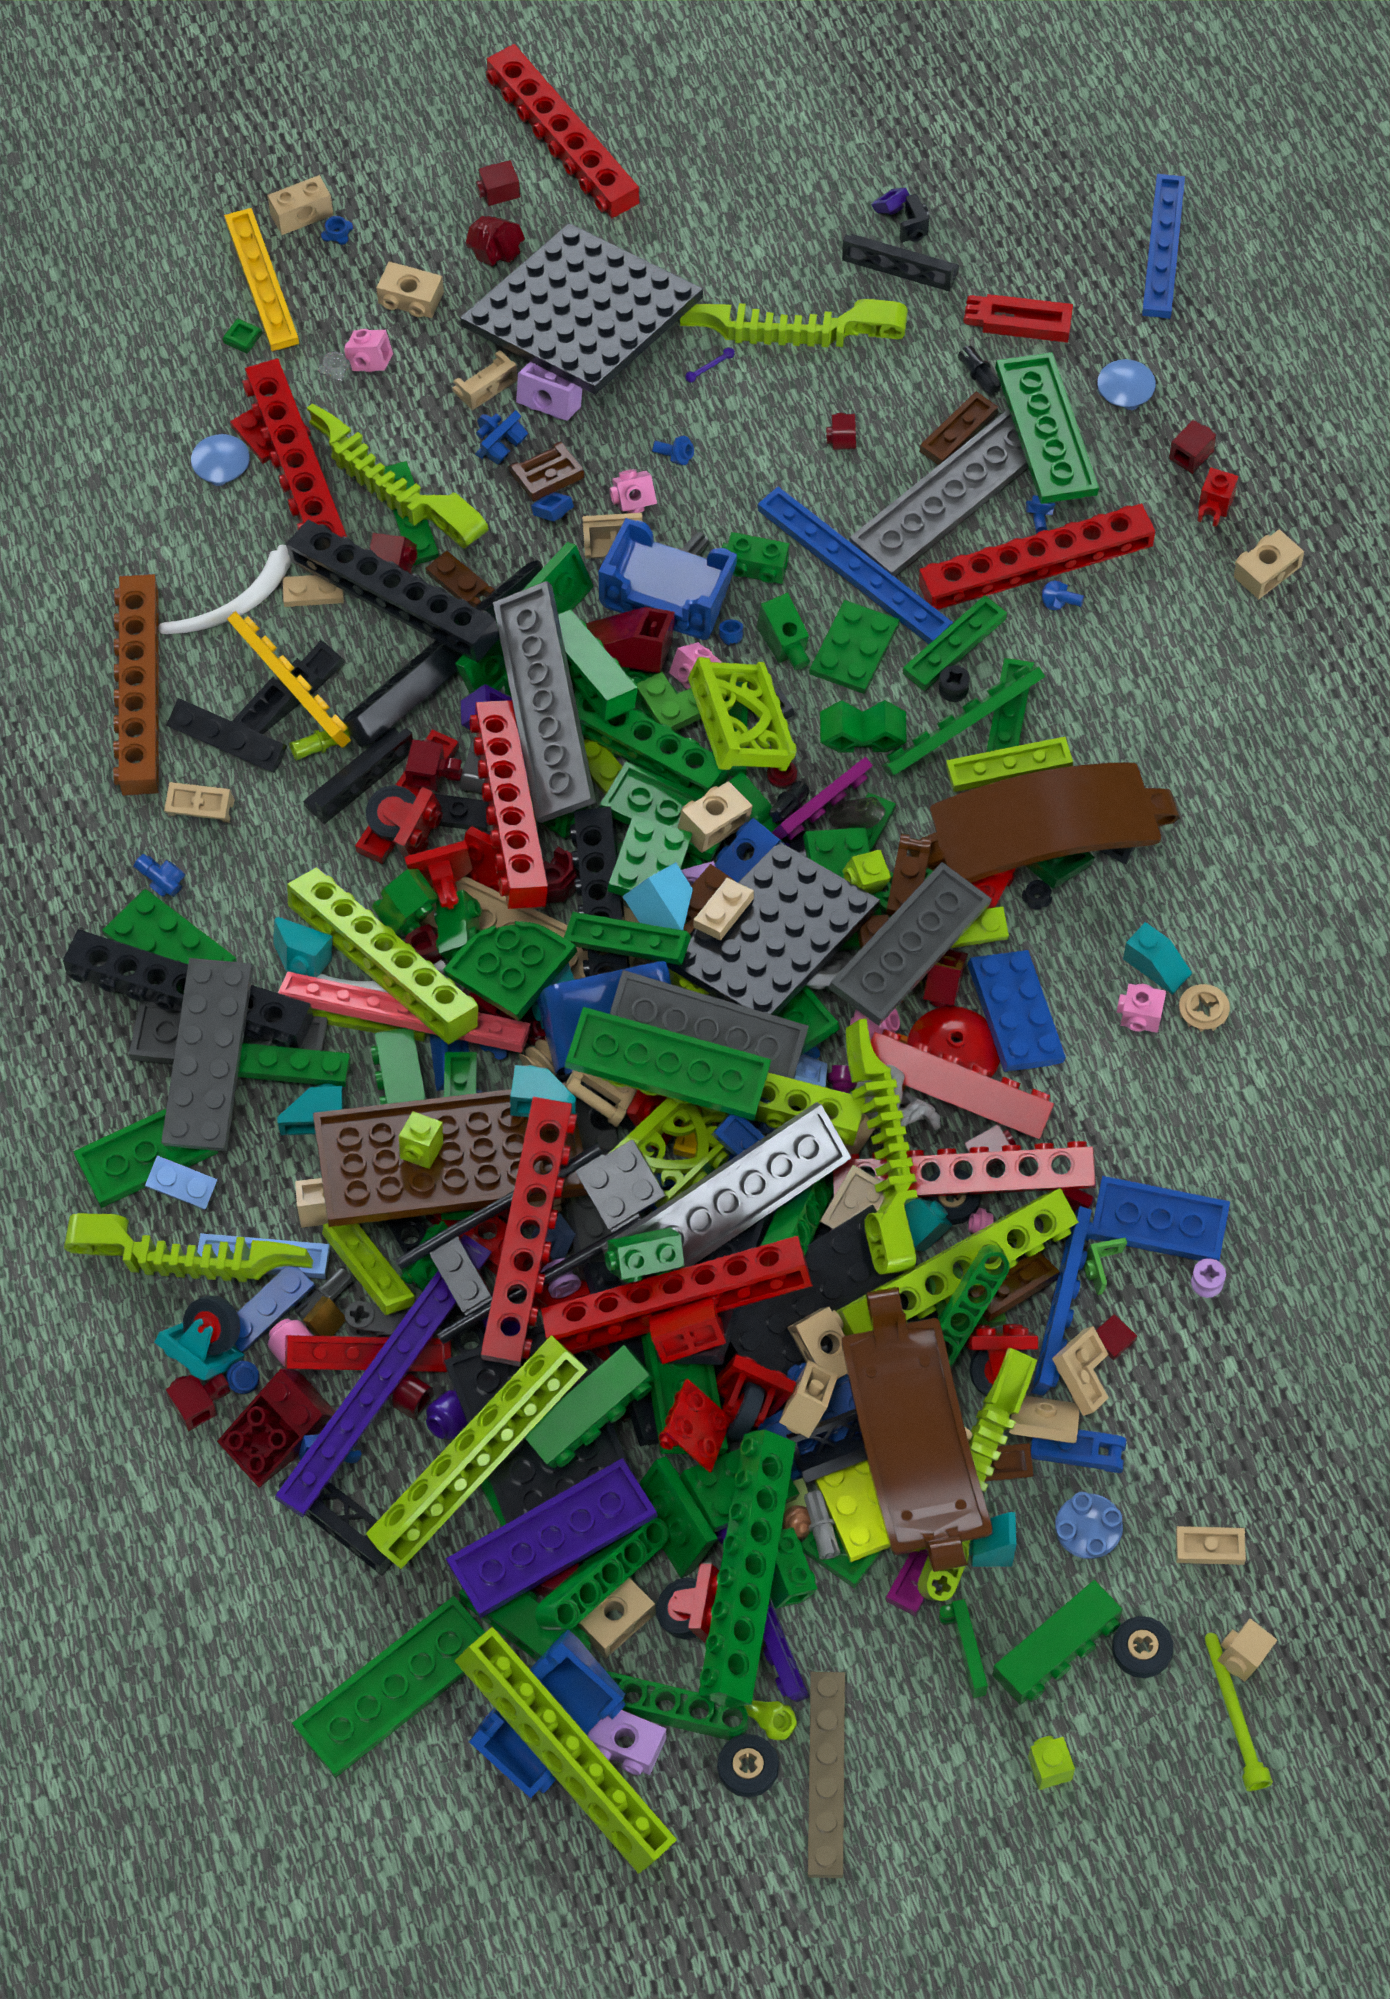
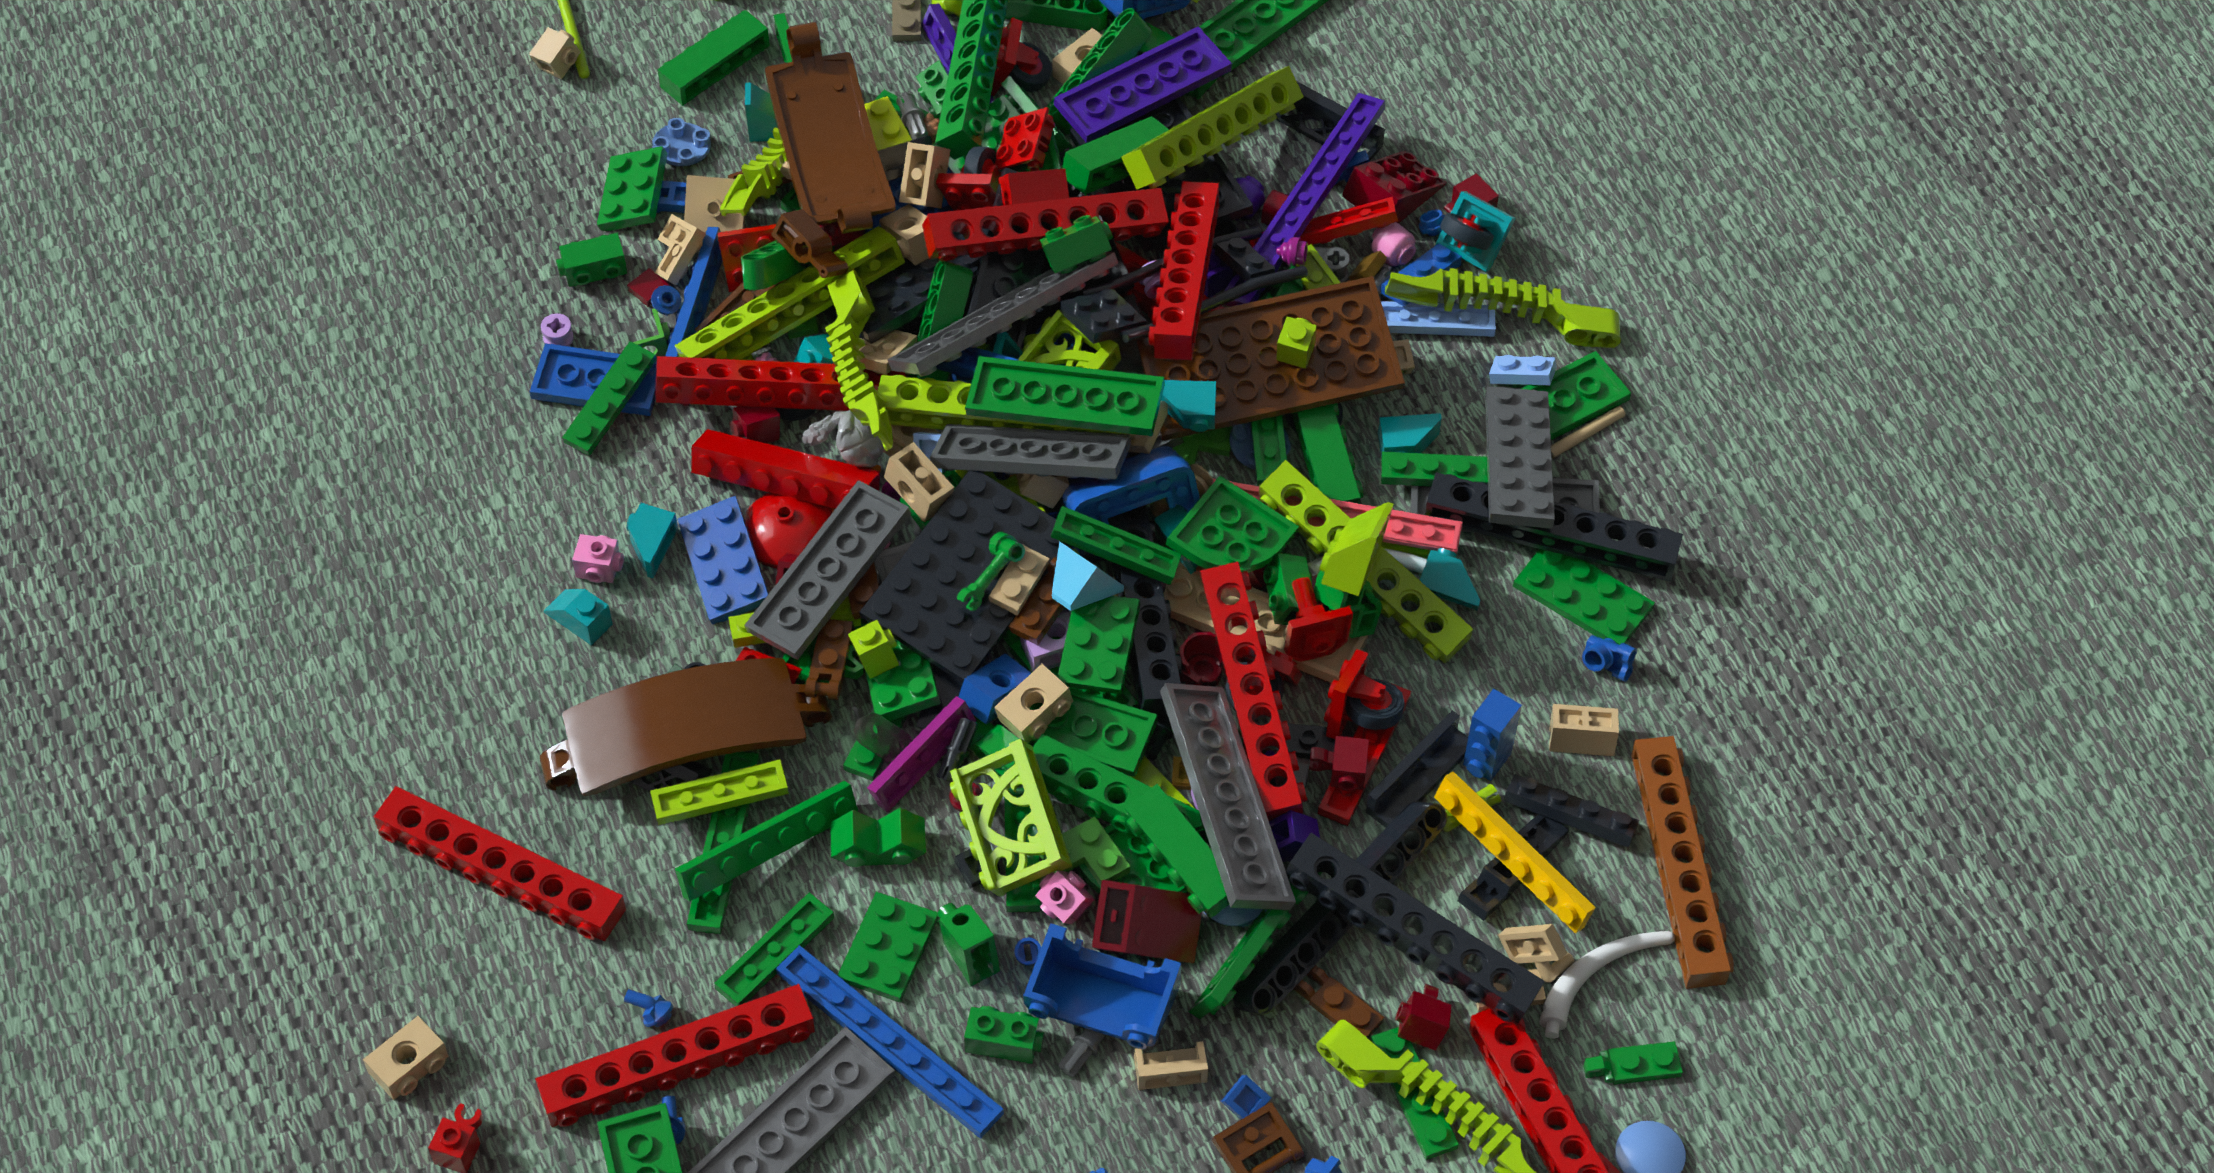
camera: 175 degrees right, 5 degrees down
(144, 1112) = (1587, 431): none -> tan bar
(217, 527) = (1635, 1063): none -> green hinge
(278, 594) = (1537, 945): none -> tan plate
(289, 770) = (1491, 735): none -> blue brick
(391, 901) = (1355, 550): none -> lime slope
(407, 1287) = (1293, 252): none -> magenta plate
(642, 495) = (1151, 1115): bright pink brick -> none
(735, 918) = (1004, 548): none -> green brick
(819, 1009) = (918, 481): none -> tan brick
(935, 1289) = (808, 243): none -> reddish brown piece
(951, 691) = (775, 908): black wheel -> none
(1091, 1035) = (651, 535): none -> teal slope
(1093, 1295) = (666, 300): none -> blue plate
(1140, 1456) = (632, 189): none -> green plate
(1143, 1182) = (609, 398): none -> green plate
(1144, 1663) = (641, 52): black bush -> none
(1177, 1358) = (591, 260): none -> green brick
(1209, 996) = (543, 563): tan gear -> none
(1210, 1545) = (577, 131): tan plate -> none
(1215, 736) = (490, 849): none -> red brick

